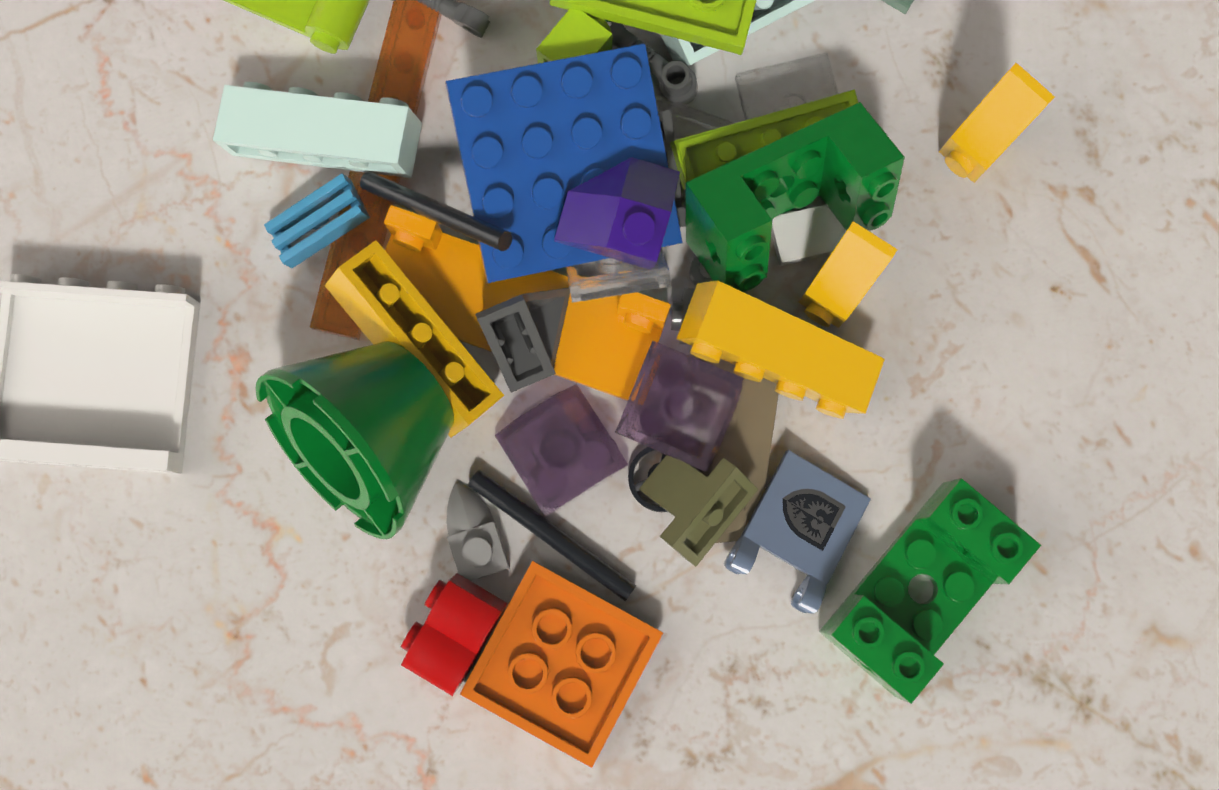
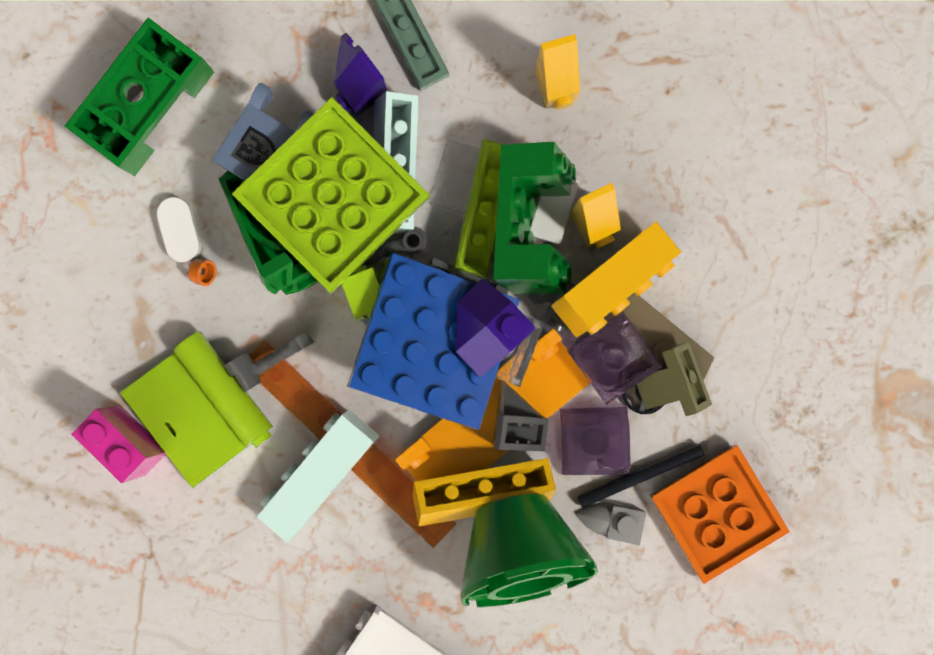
camera: 60 degrees left, 5 degrees up
(313, 213) = (358, 507): dark azure tile -> none
(436, 211) = (416, 435): black bar -> none
(453, 632) = (667, 567): red brick -> none
(804, 522) = (721, 324): sand blue flag -> none
(963, 550) = (815, 311): green plate -> none

